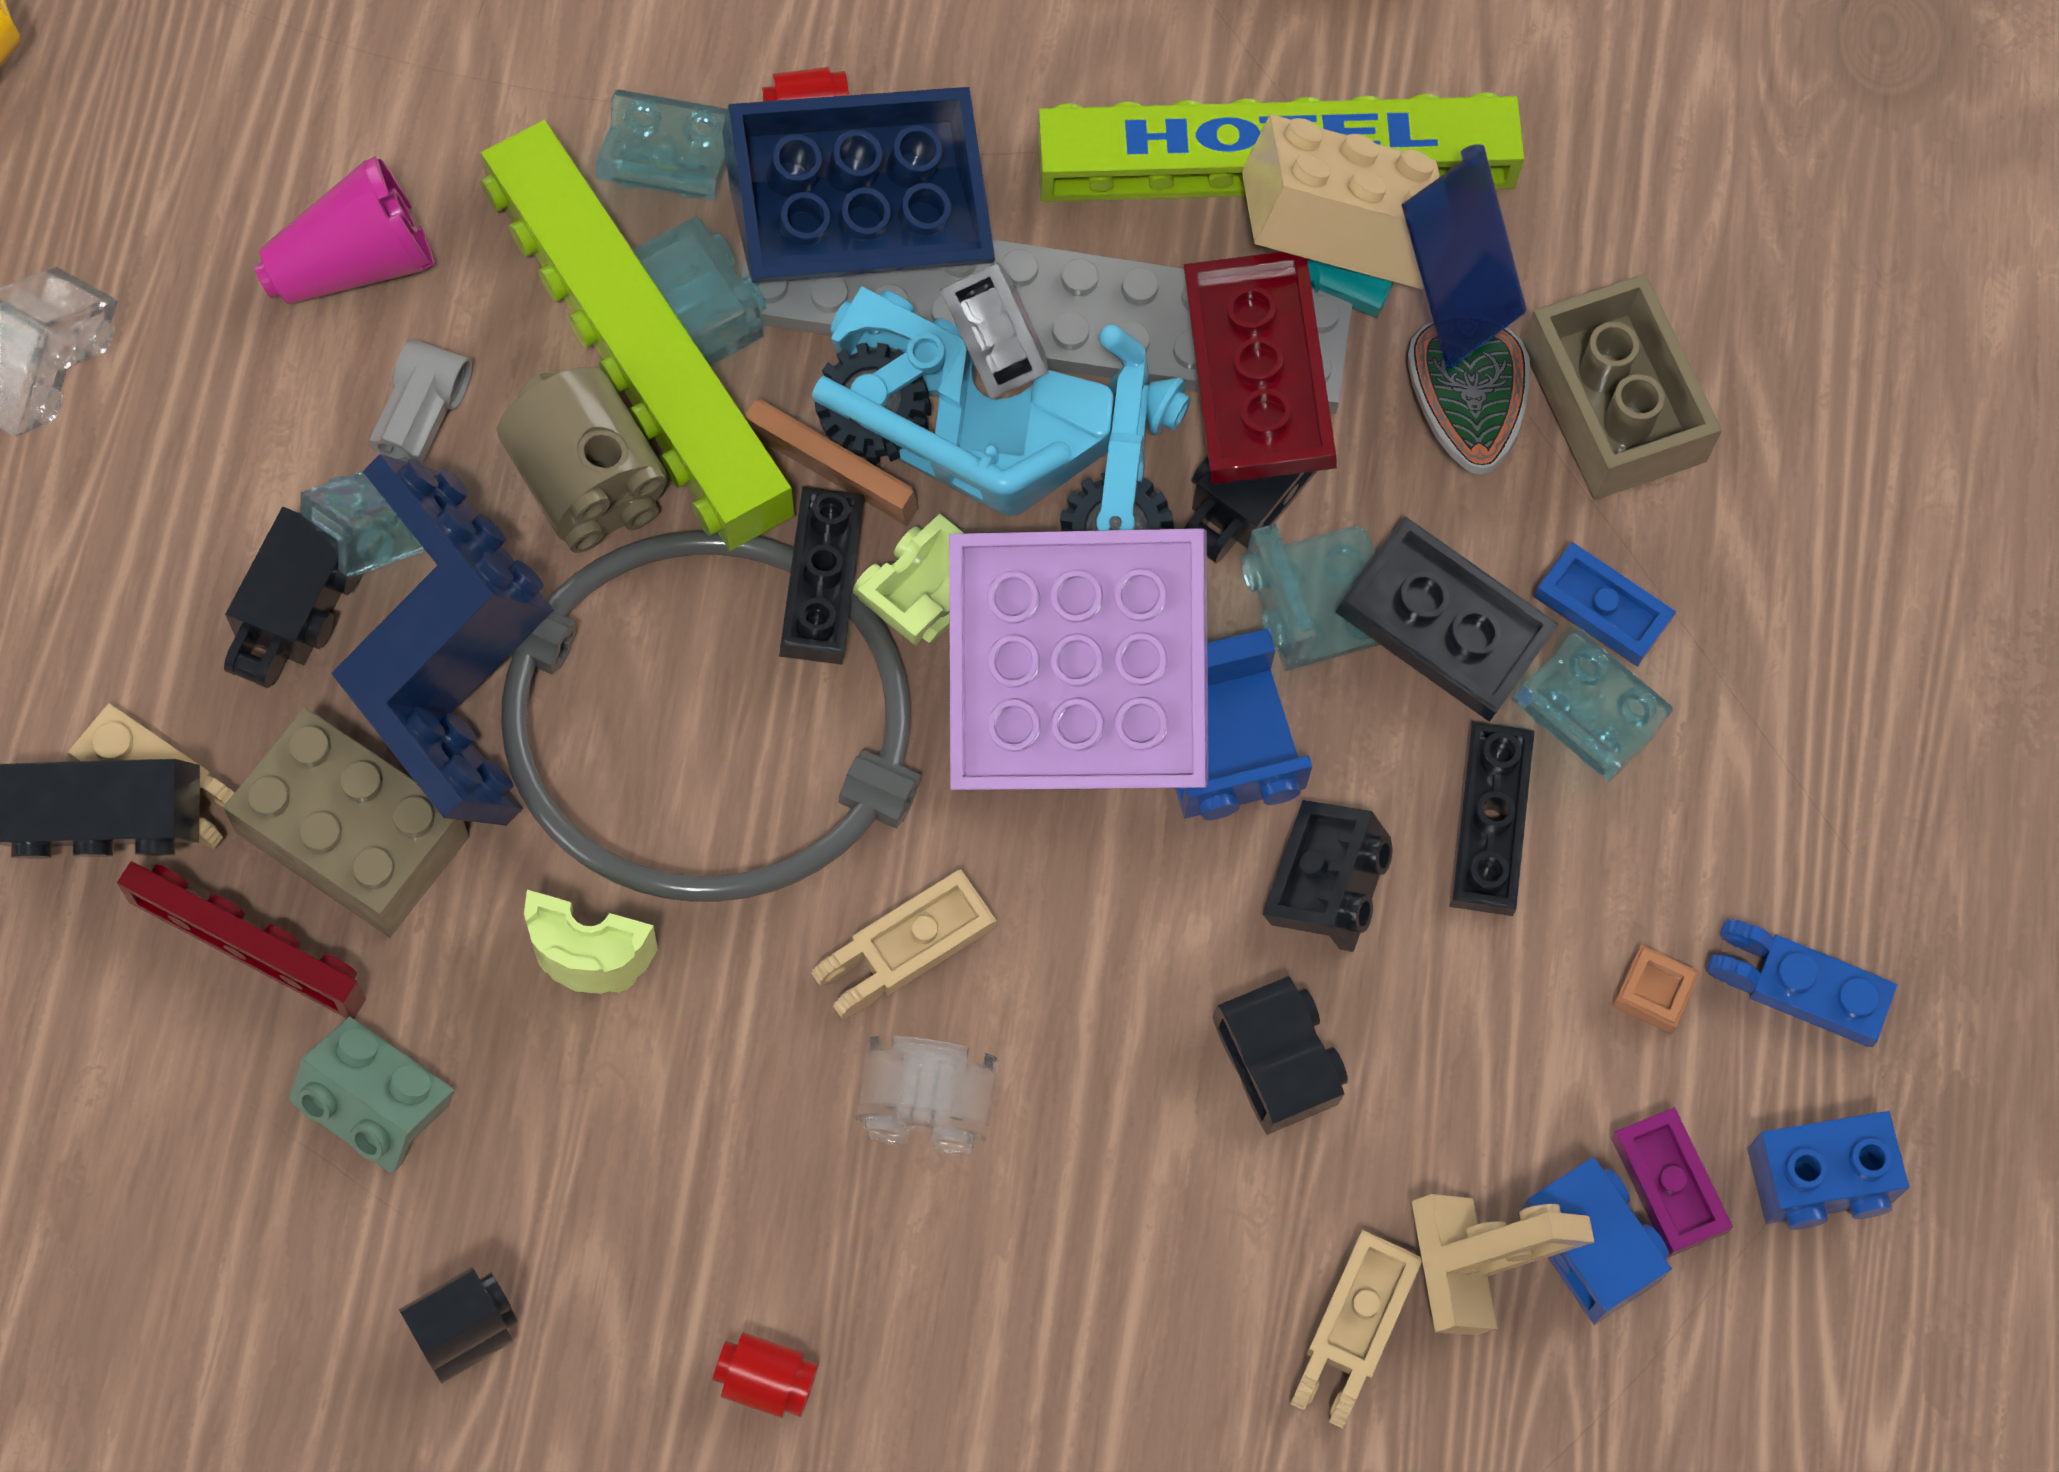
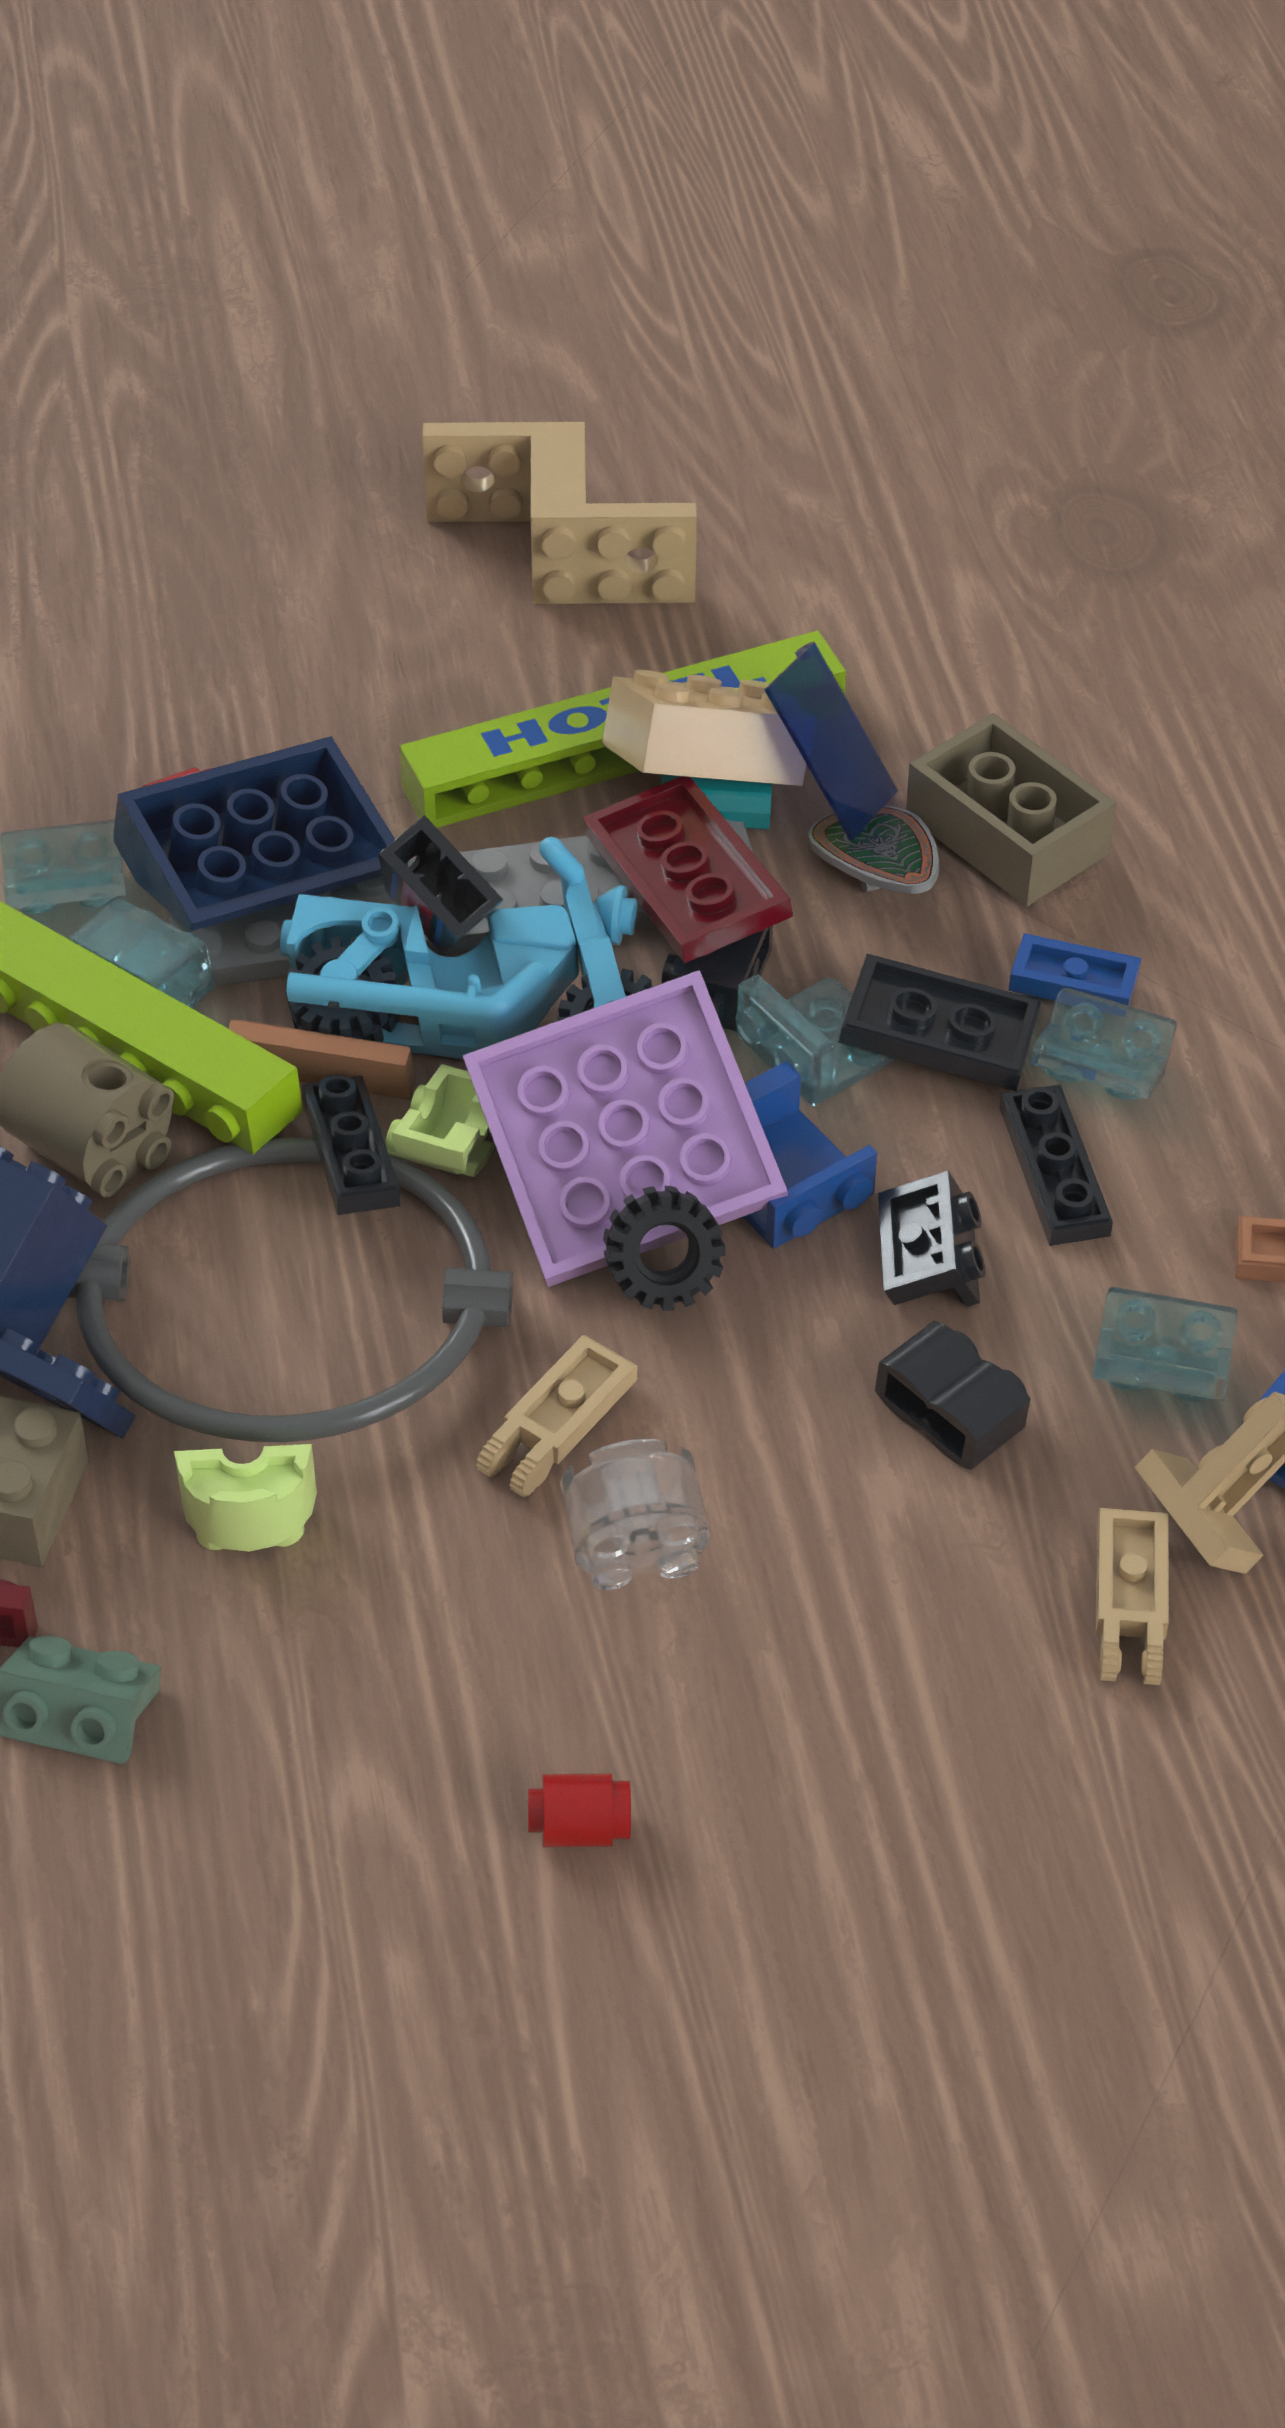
camera: 15 degrees left, 20 degrees down
(460, 1322) = (252, 1847): black brick -> none
(1061, 836) = (691, 1274): none -> black tyre
(1501, 1074) = (1165, 1344): none -> clear light blue bracket

